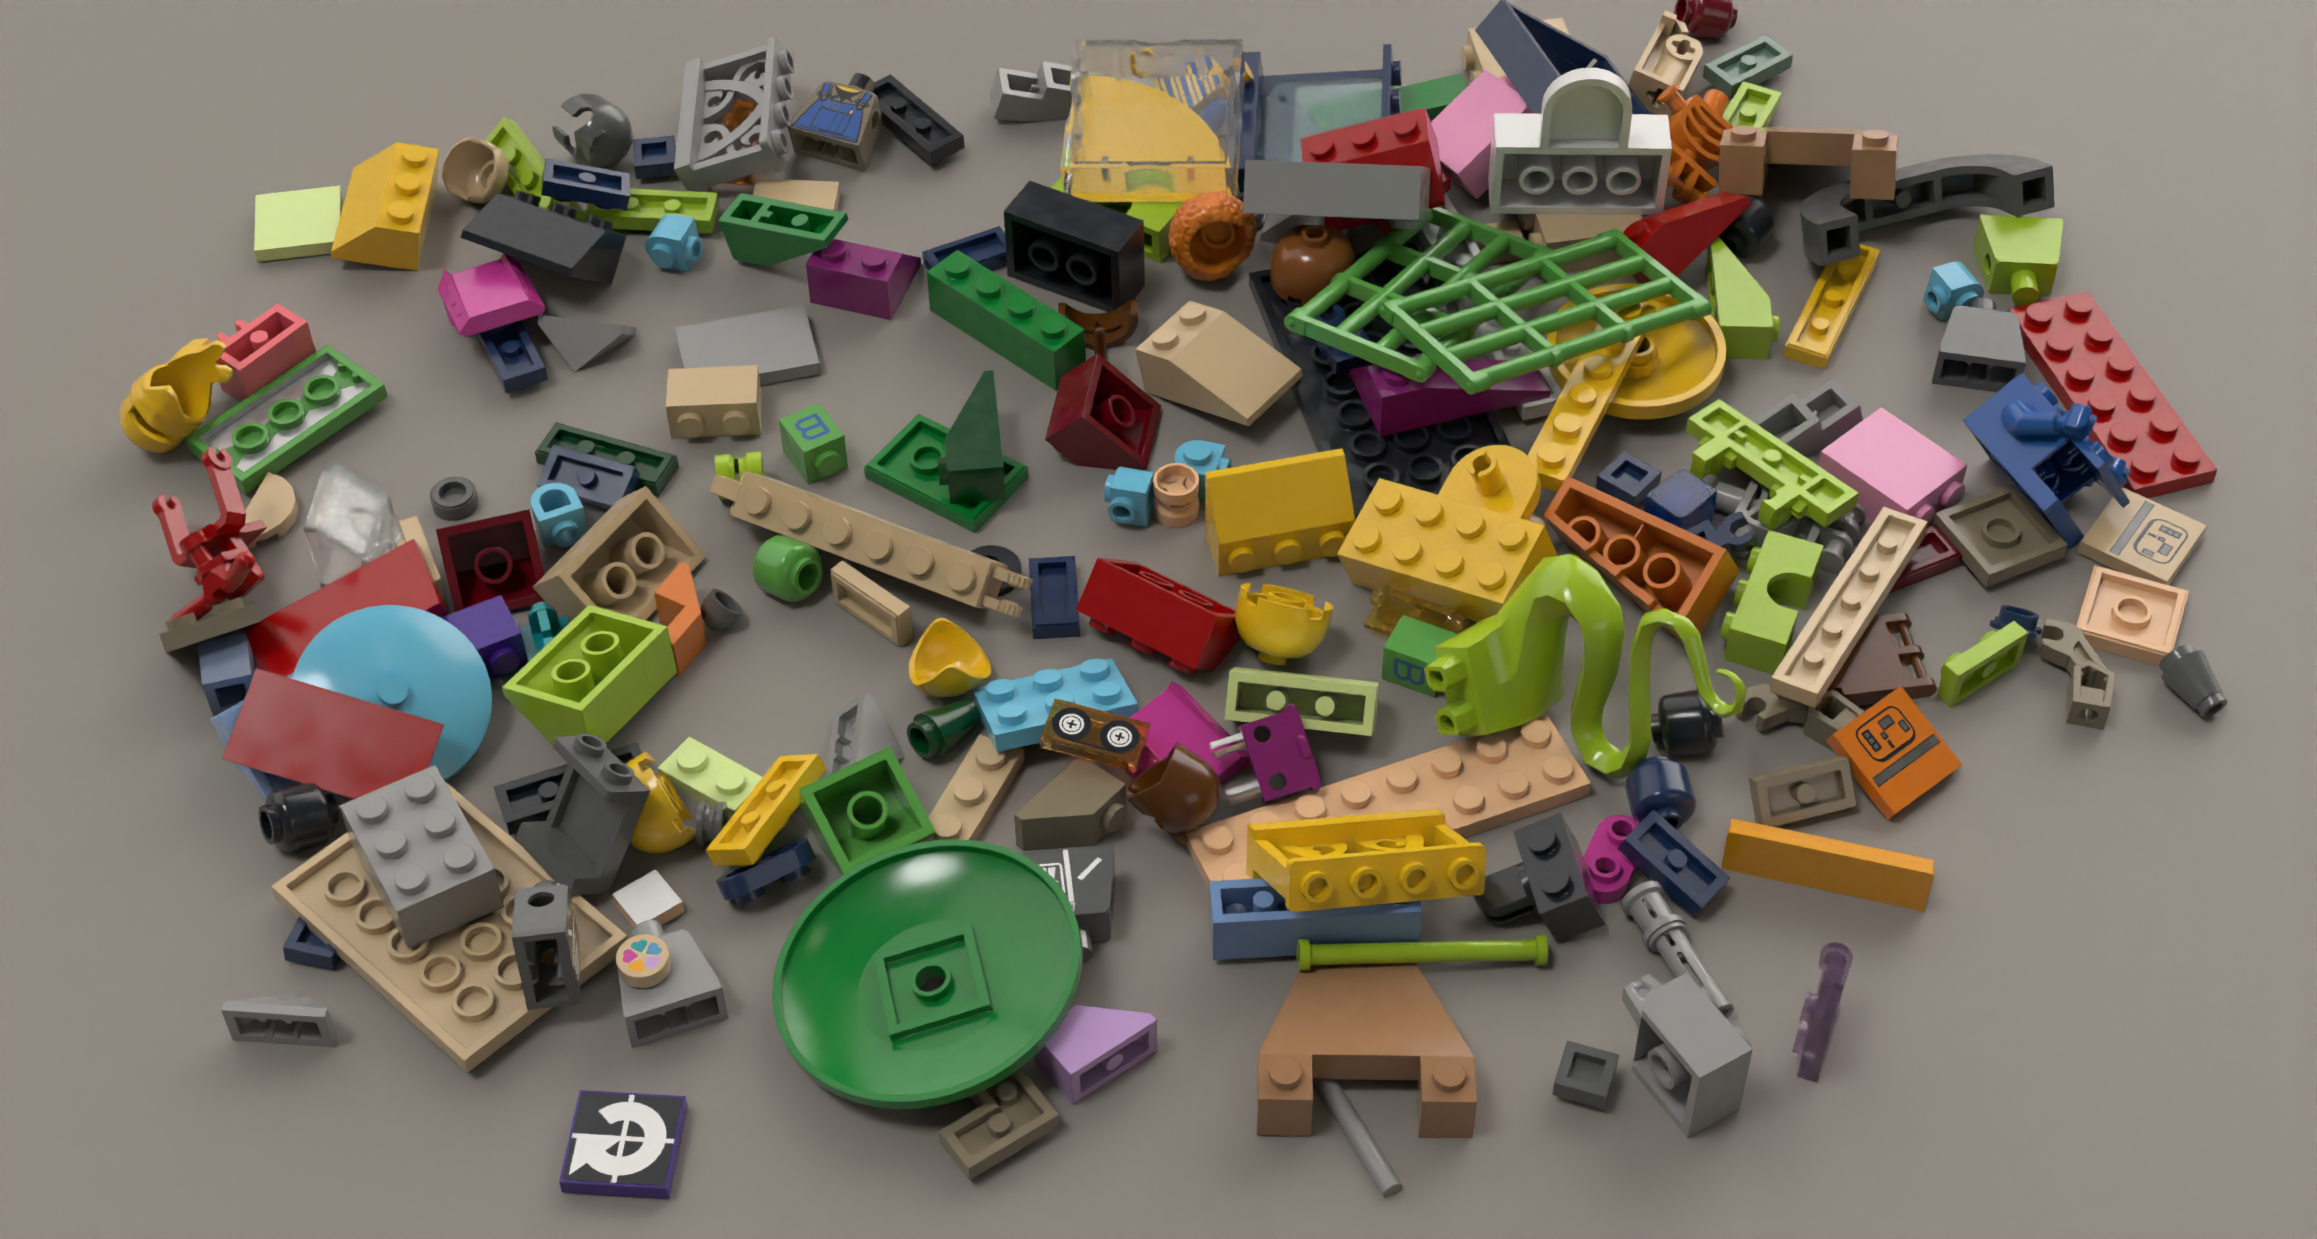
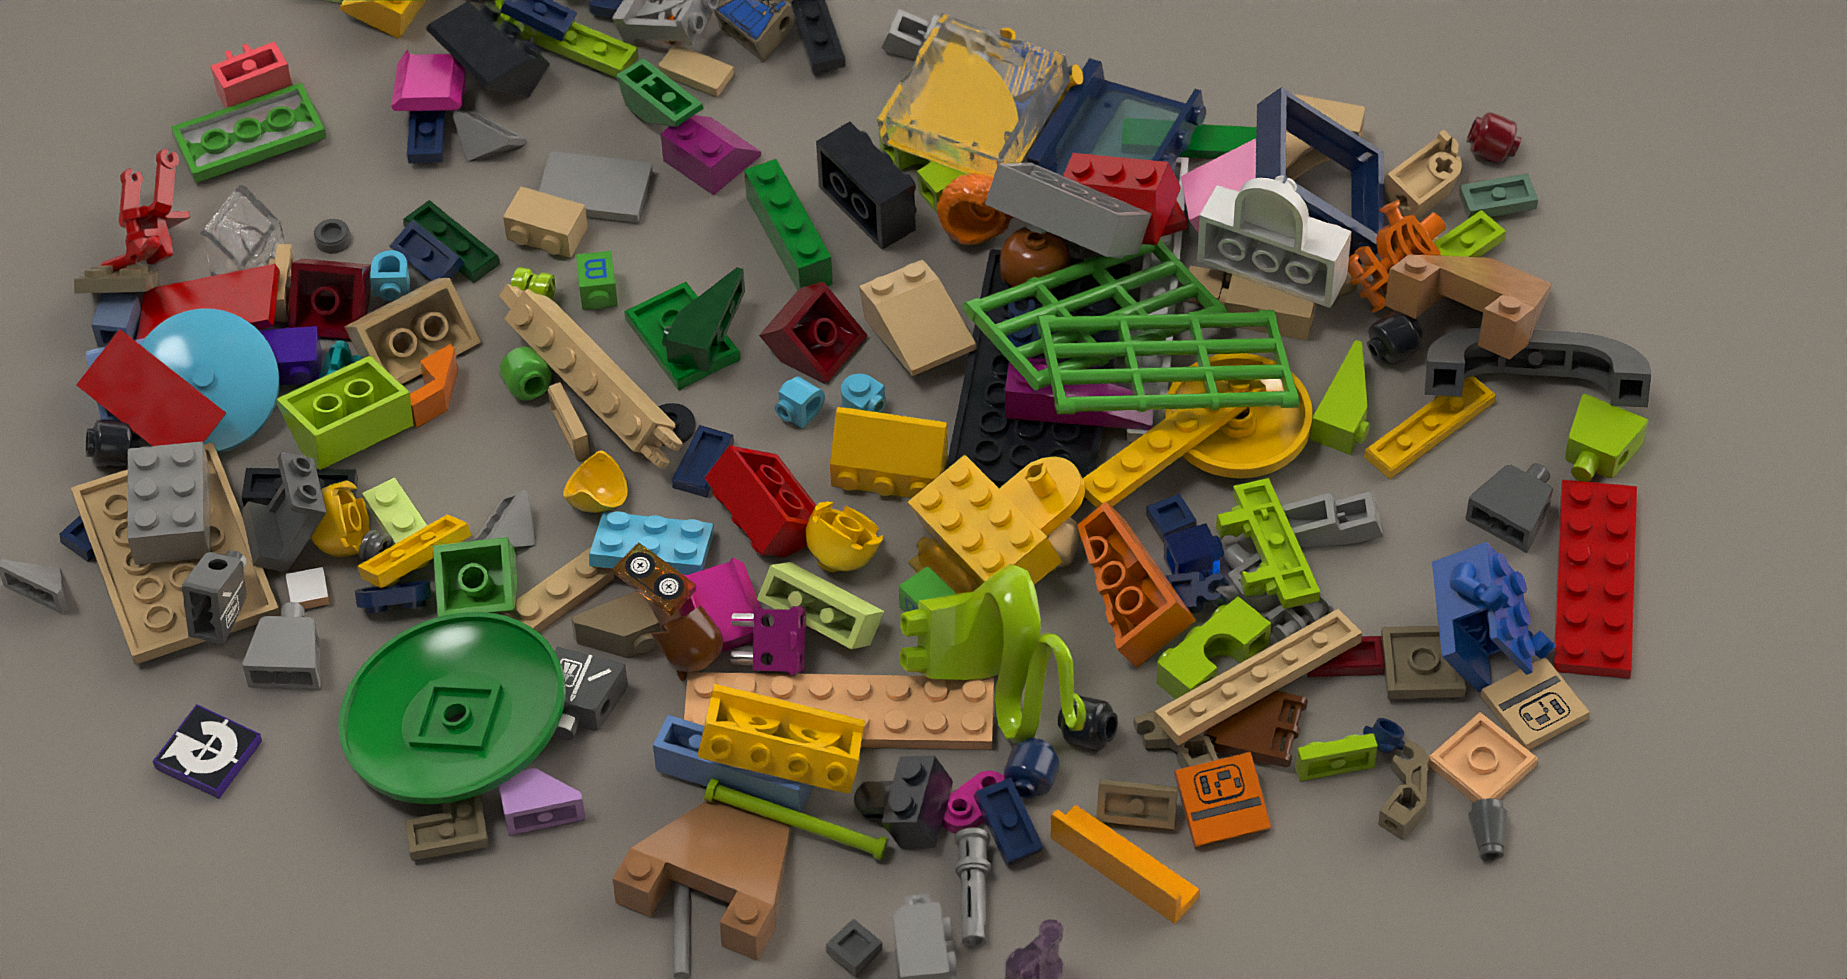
camera: 25 degrees right, 5 degrees up
(173, 397) = (173, 92): yellow piece -> none
(274, 505) = (204, 201): tan tile -> none
(643, 961) = (271, 631): tan tile -> none
(675, 243) = (585, 80): medium azure plate -> none
(719, 610) = (465, 388): dark grey hinge -> none
(941, 728) = (567, 533): dark green cone -> none
(984, 247) = (796, 161): dark blue tile -> none
(1113, 326) = (844, 268): reddish brown helmet -> none
(1176, 495) = (824, 409): light nougat wheel -> none
(1685, 231) = (1325, 330): red slope -> none
(1895, 468) = (1372, 582): bright pink brick -> none
(1950, 287) = (1526, 447): medium azure plate -> none

